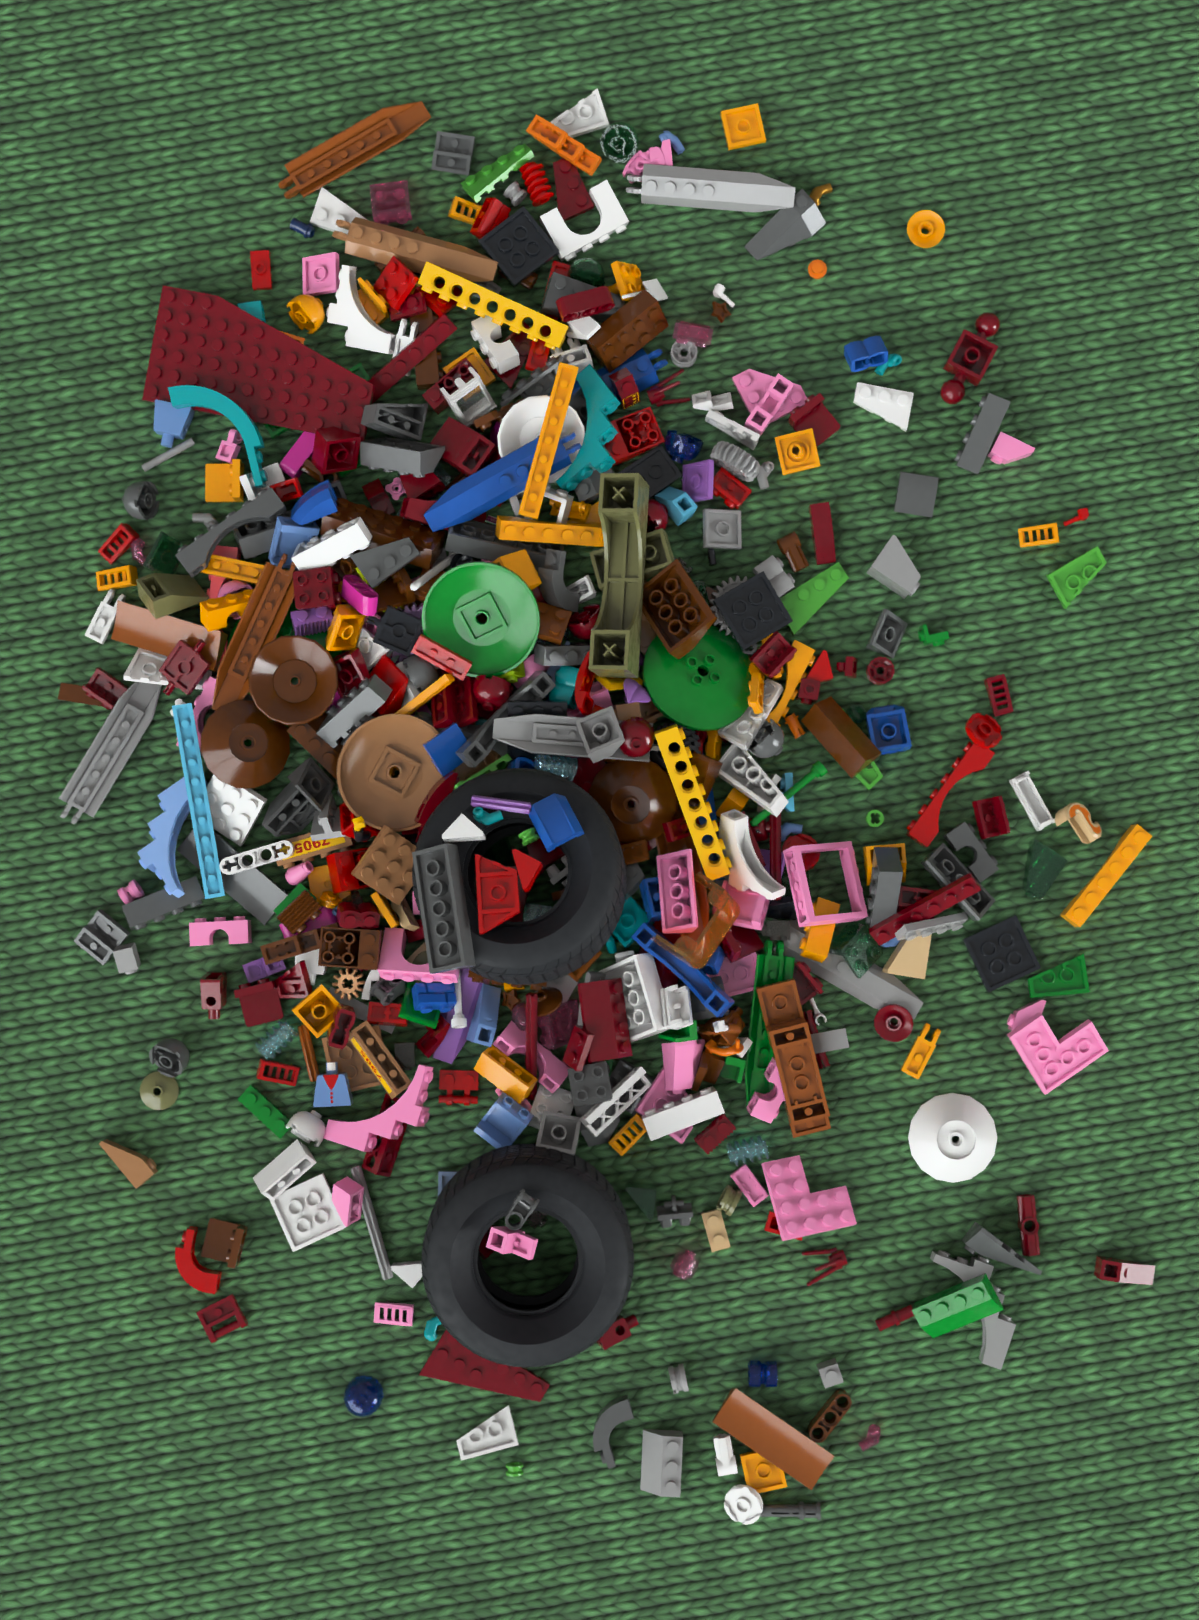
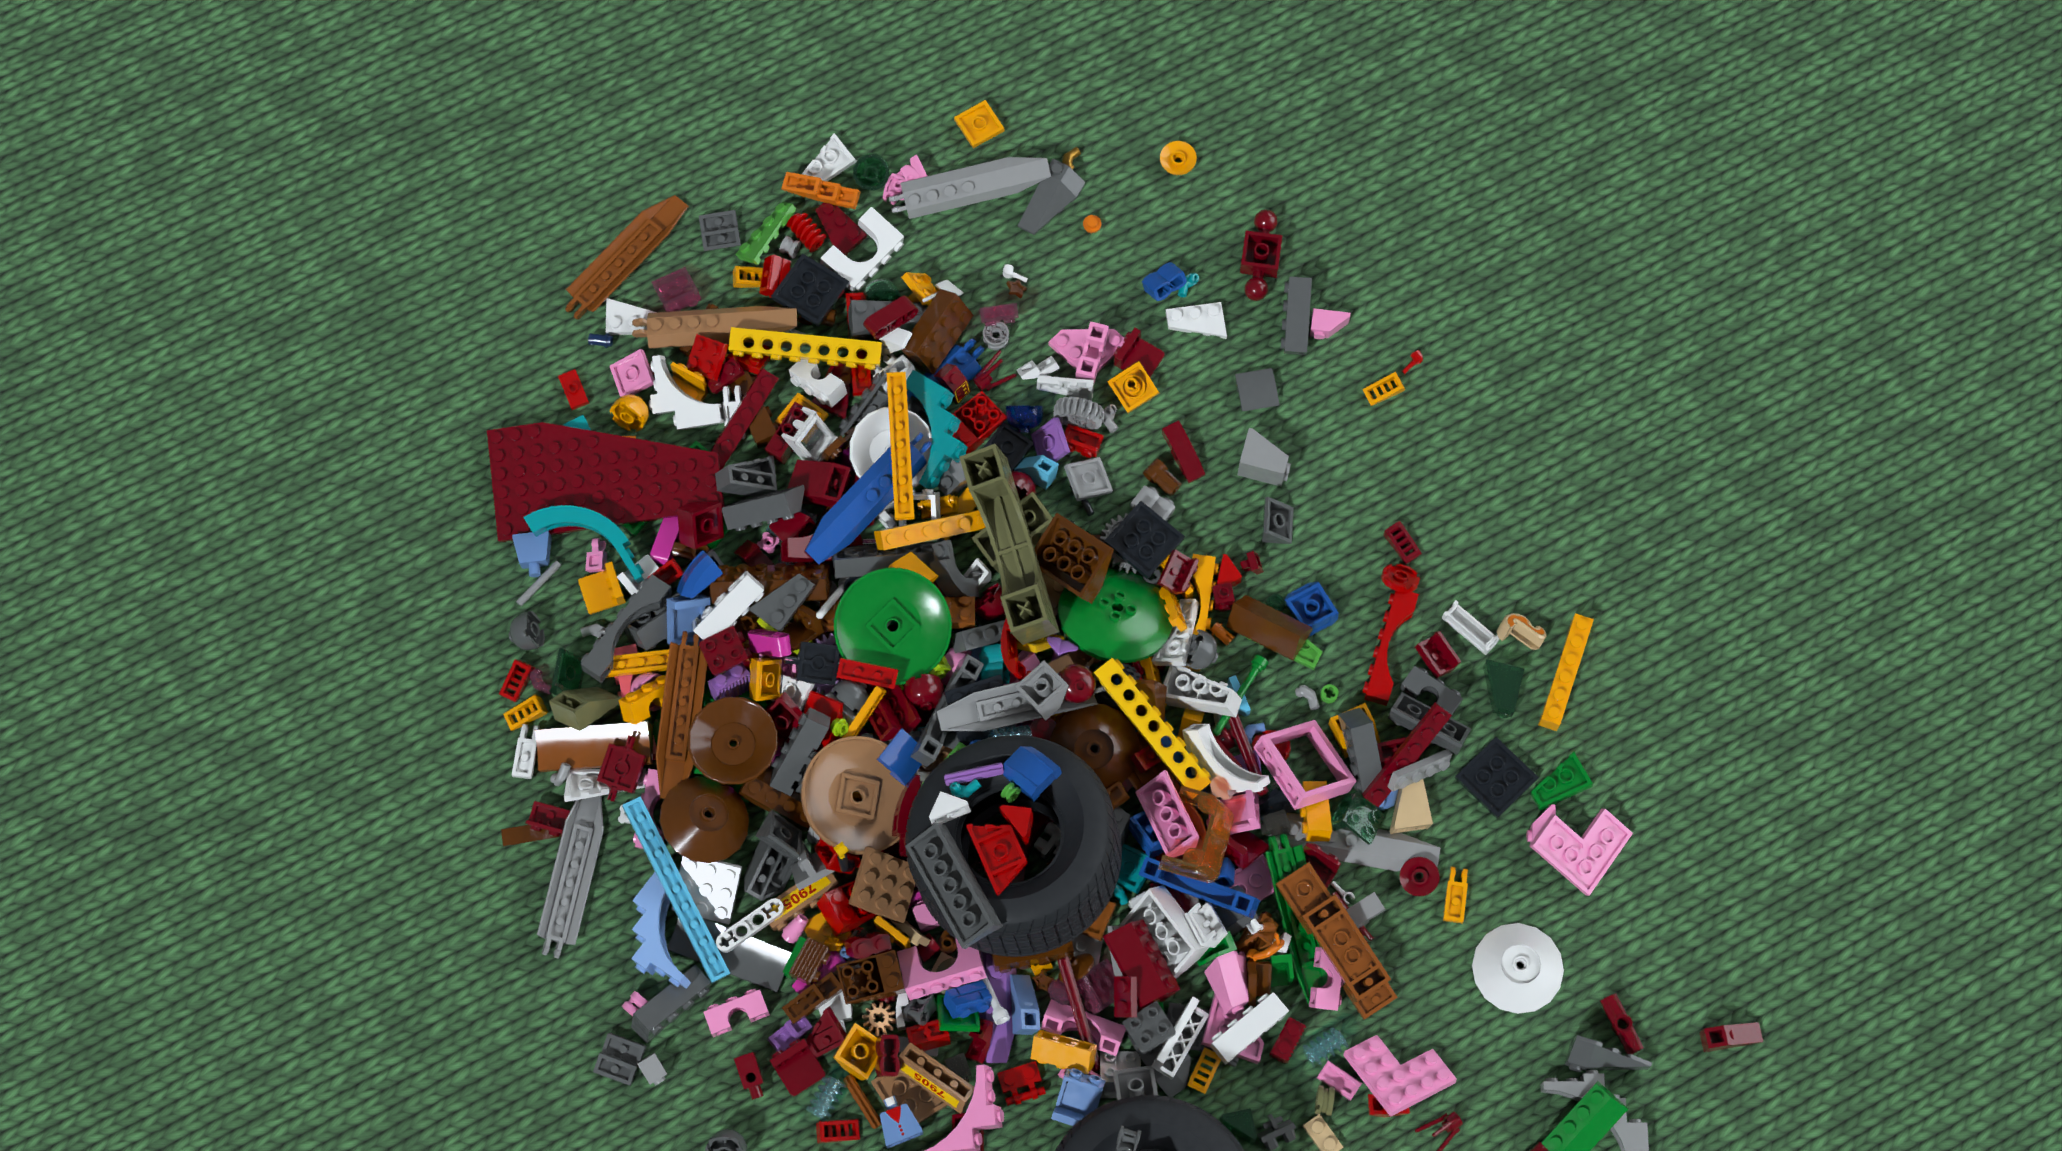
camera: 20 degrees left, 15 degrees down
(128, 652) = (559, 778): none -> light grey arm
(398, 700) = (839, 727): none -> lime plate
(675, 142) = (926, 160): medium blue arm -> none
(812, 595) = (1195, 510): bright green wing -> none
(855, 812) = (1308, 693): none -> light grey arm
(888, 670) = (1280, 550): dark red wheel -> none
(936, 639) = (1324, 511): green bracket -> none
(1075, 575) = (1430, 414): bright green wing -> none

